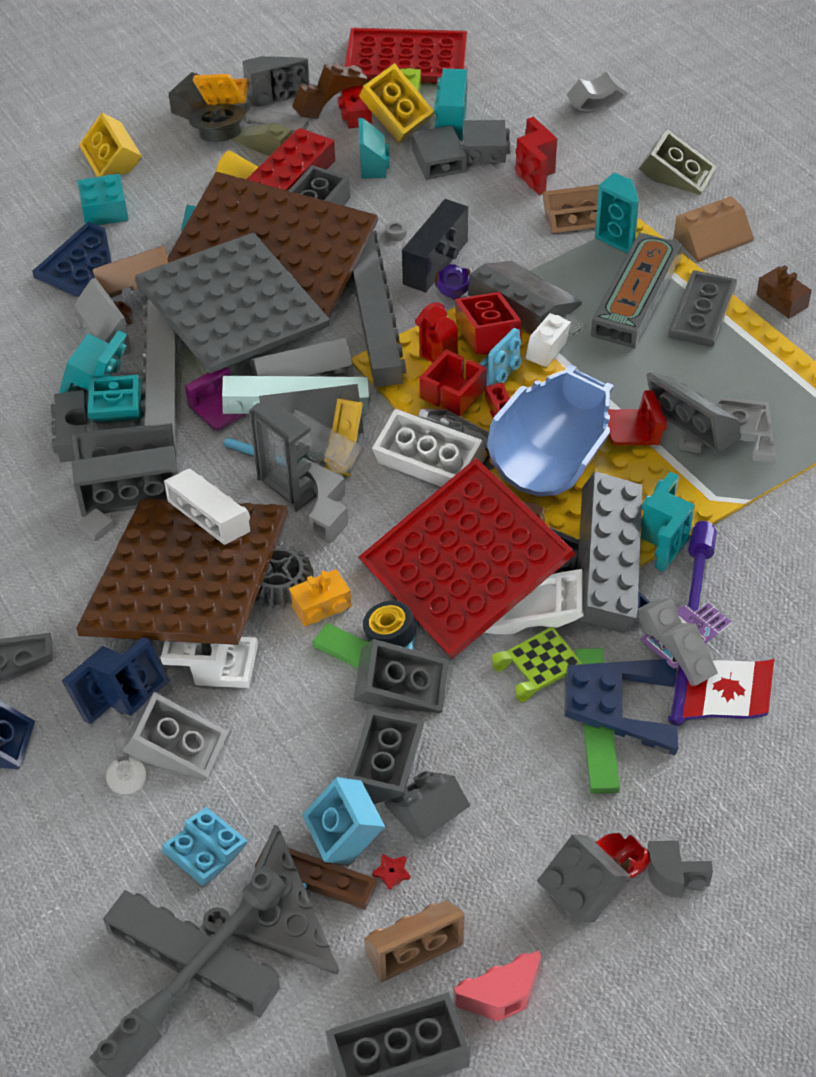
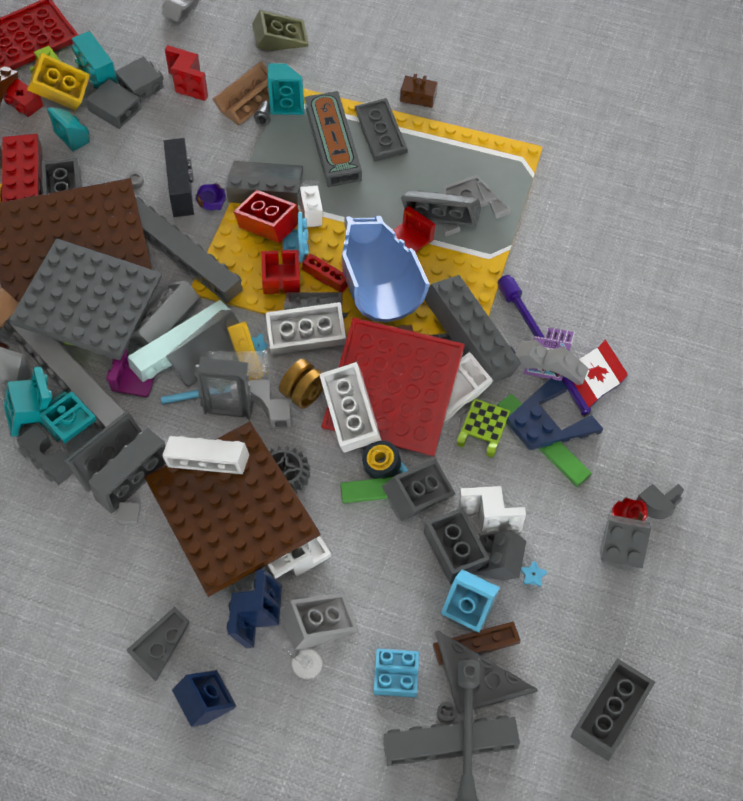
camera: 40 degrees left, 10 degrees up
(320, 597) = (323, 469): light orange brick -> none
(364, 438) = (259, 343): none -> medium azure plate
(374, 501) = (301, 384): none -> pearl gold wheel
(394, 878) = (510, 614): red plate -> none
(395, 547) = (350, 407): none -> white brick
(415, 939) = (564, 639): medium nougat slope -> none
(436, 332) = (244, 244): red piece -> none
(449, 856) = (529, 578): none -> medium azure plate
(457, 746) = (491, 509): none -> white bracket
(501, 989) = (632, 634): coral slope -> none
(583, 233) = (262, 115): none -> dark grey cone
(666, 521) = (488, 289): teal bracket -> none
(713, 228) = (340, 68): medium nougat slope -> none

